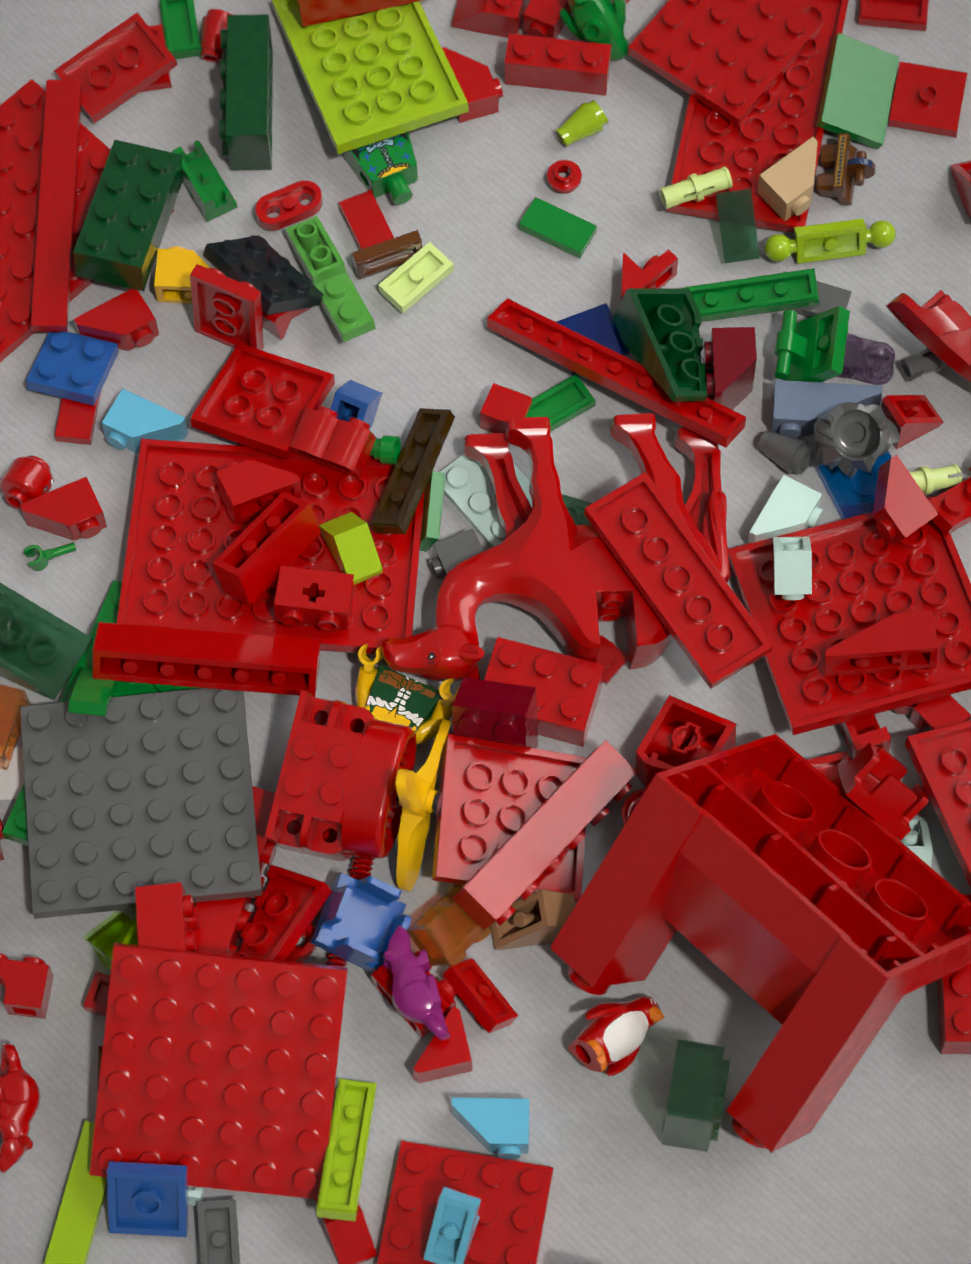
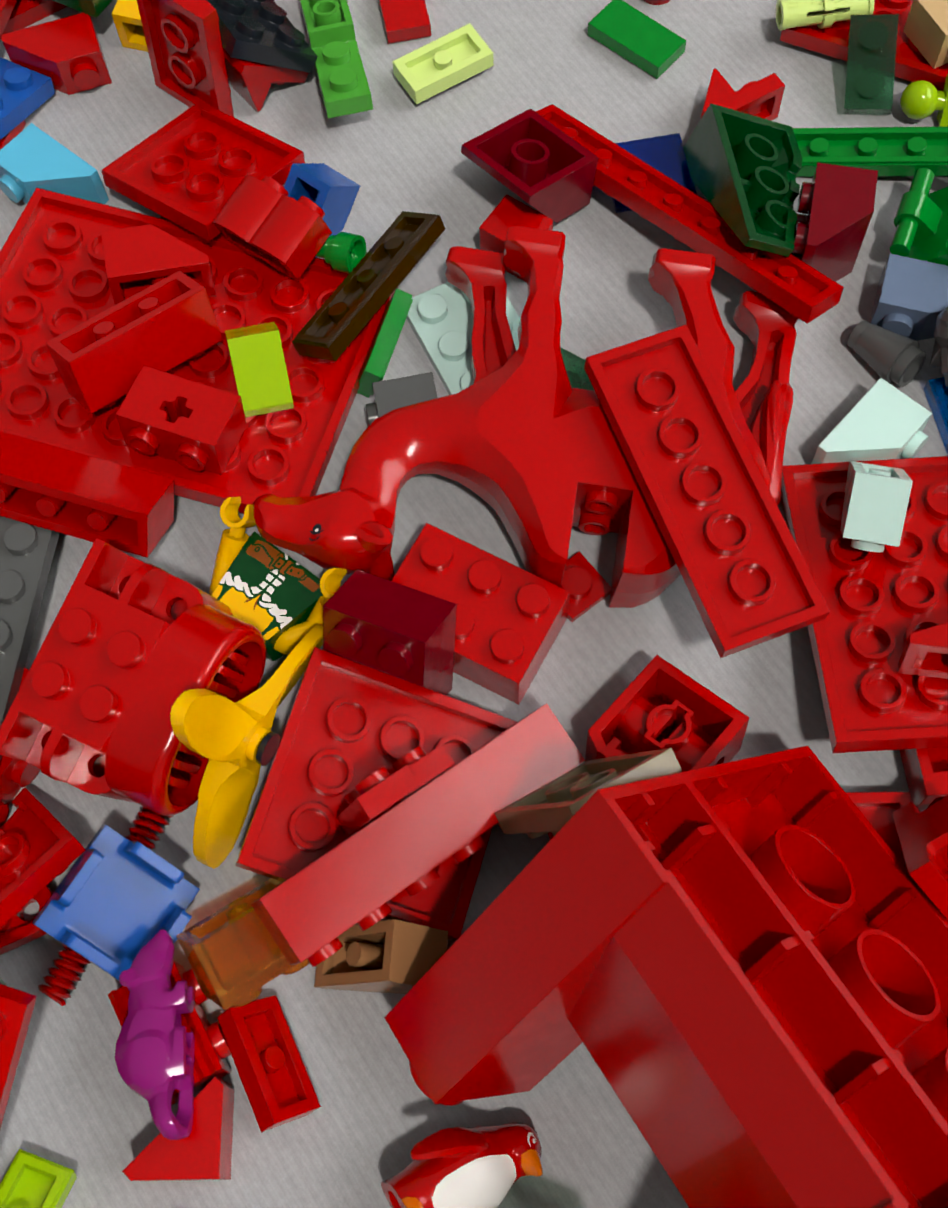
camera: 15 degrees right, 0 degrees up
(386, 254) = (408, 29): reddish brown tile -> none
(509, 355) = (537, 163): none -> dark red slope
(521, 810) = (383, 791): none -> red plate
(562, 402) = (597, 243): green tile -> none
(626, 798) = (557, 801): none -> dark tan plate

